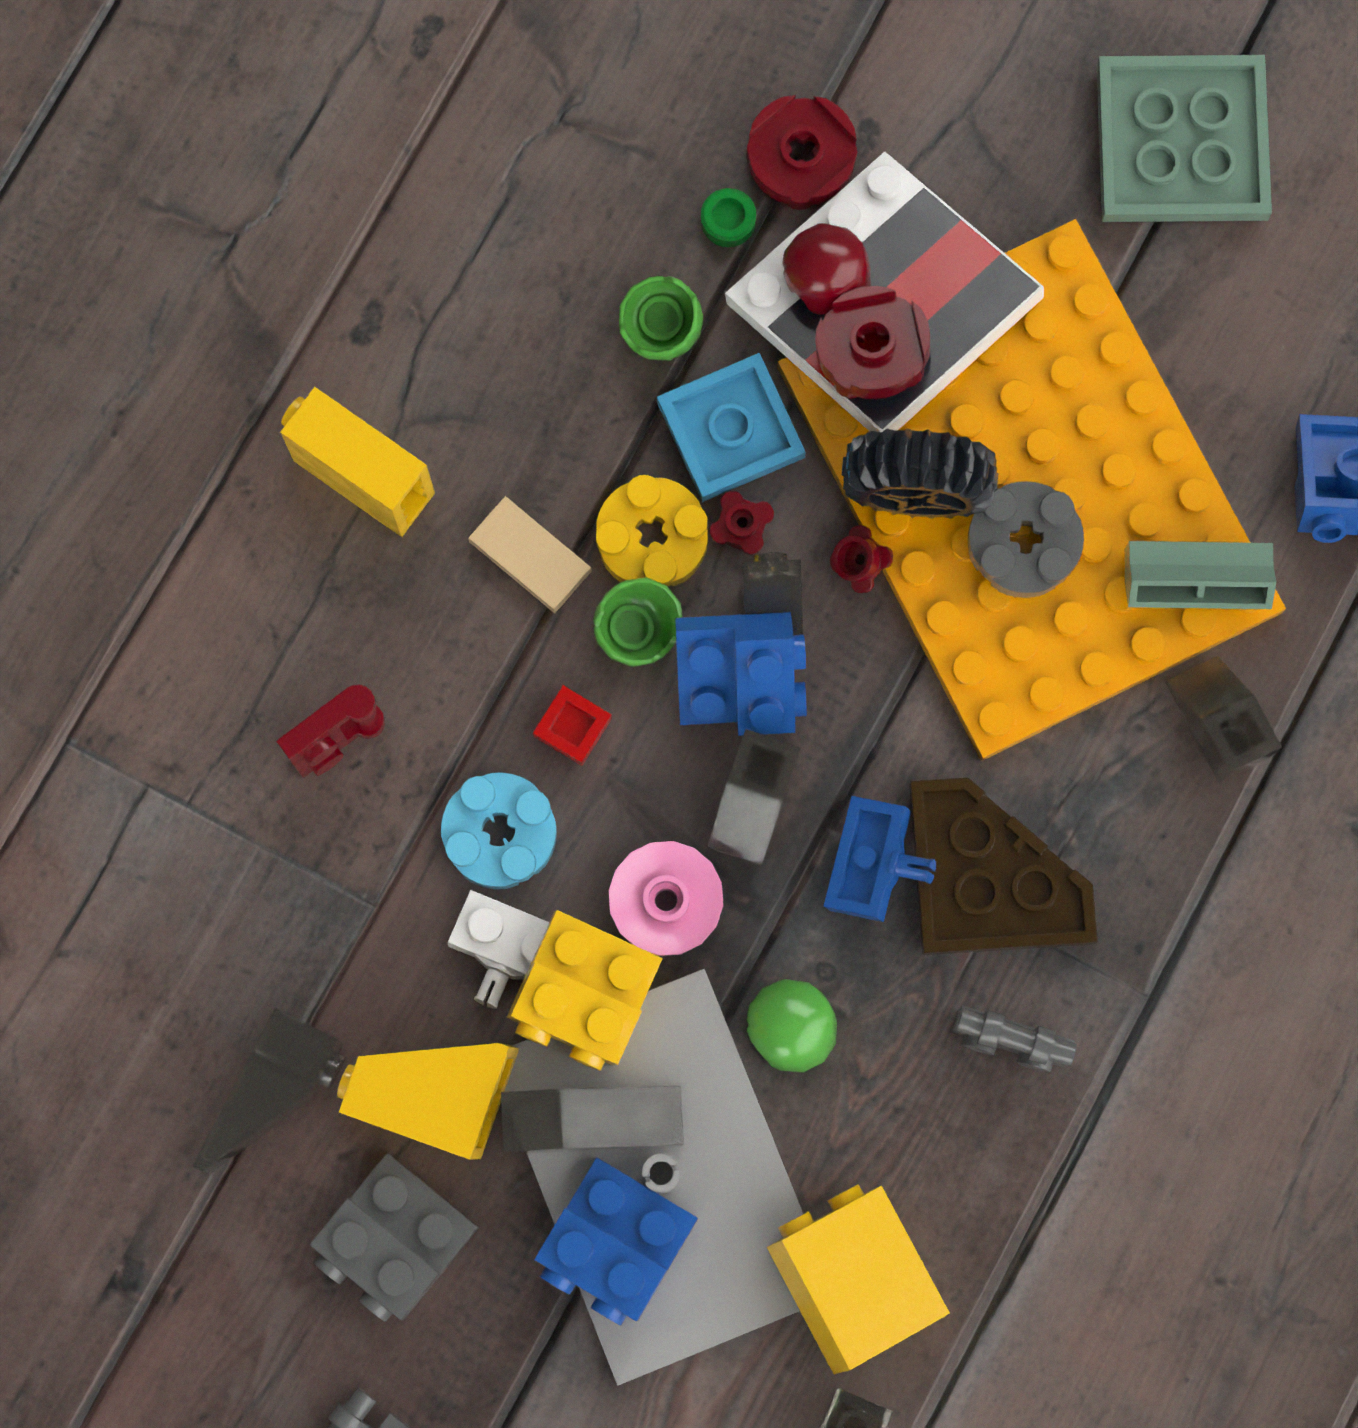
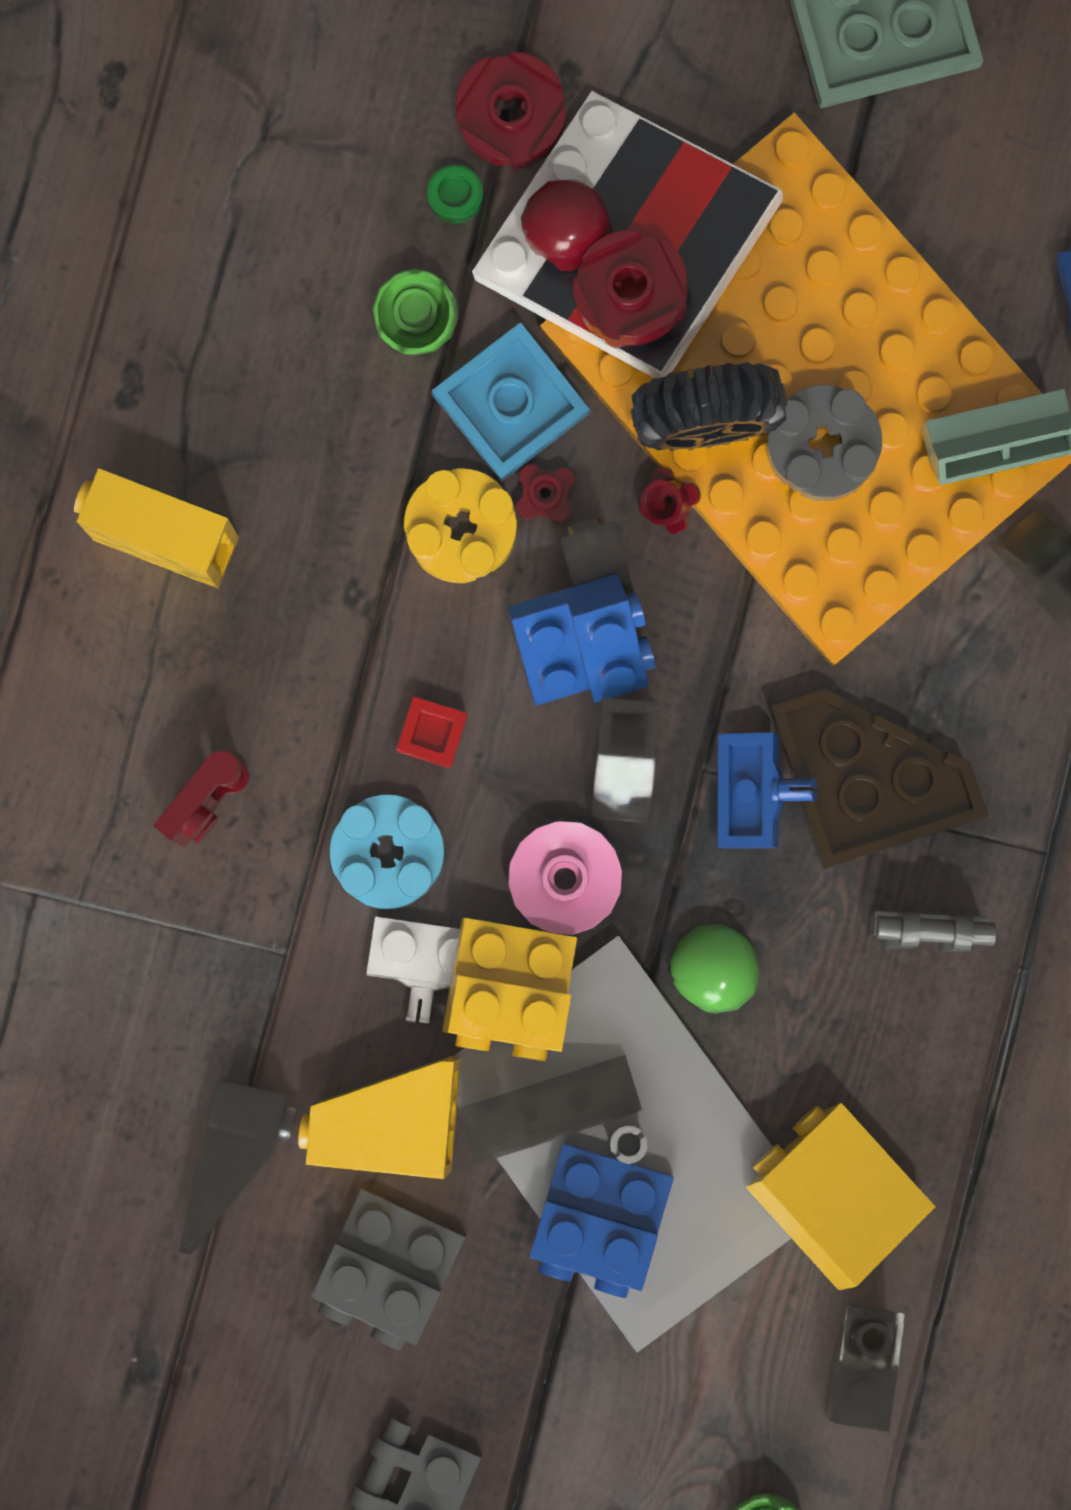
camera: 15 degrees left, 5 degrees up
(530, 554) = (347, 575): tan tile -> none
(637, 621) = (469, 617): bright green hair -> none

